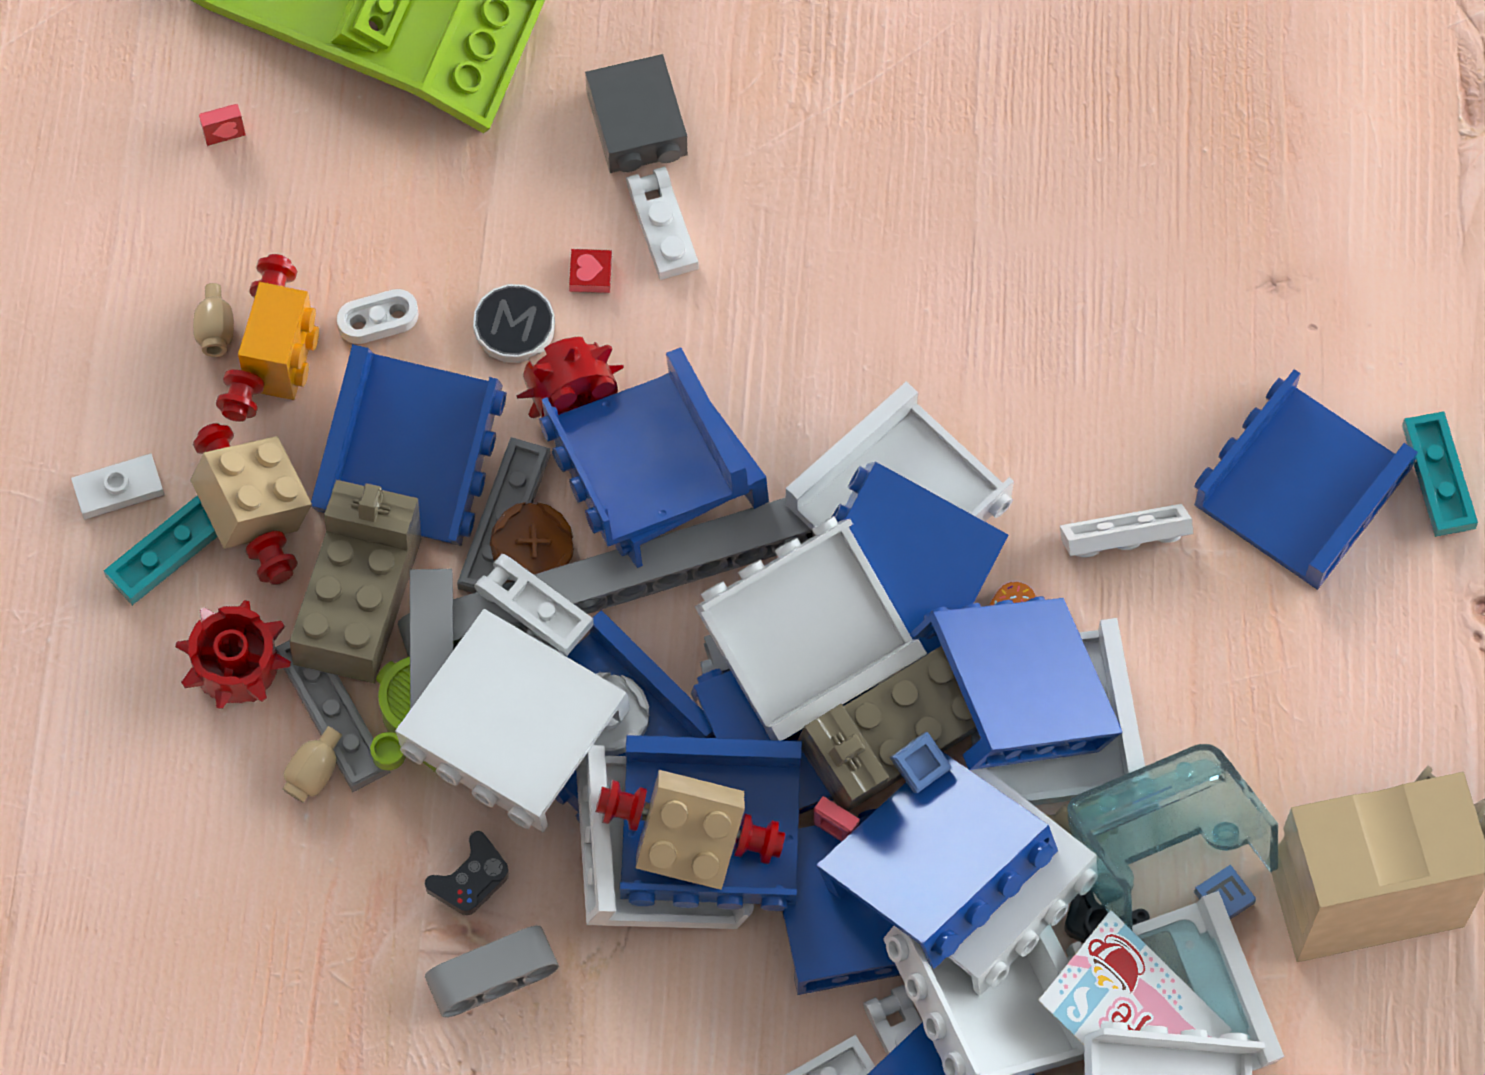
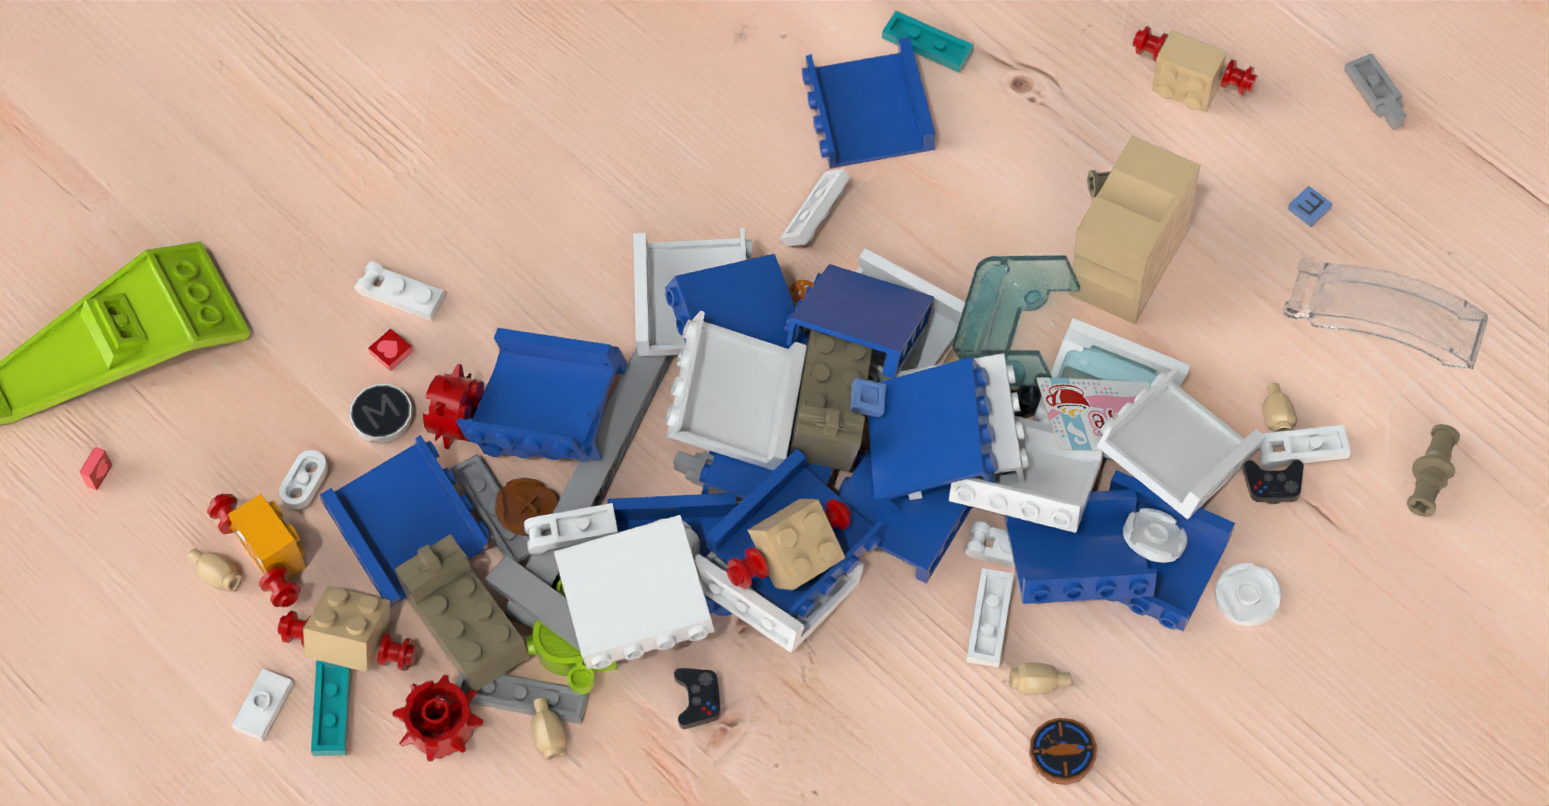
camera: 45 degrees left, 5 degrees down
(491, 971) = (766, 730): light grey beam -> none
(636, 114) = (322, 251): dark grey brick -> none
(834, 819) = (854, 473): coral tile -> none
(1232, 889) = (1061, 322): medium blue tile -> none

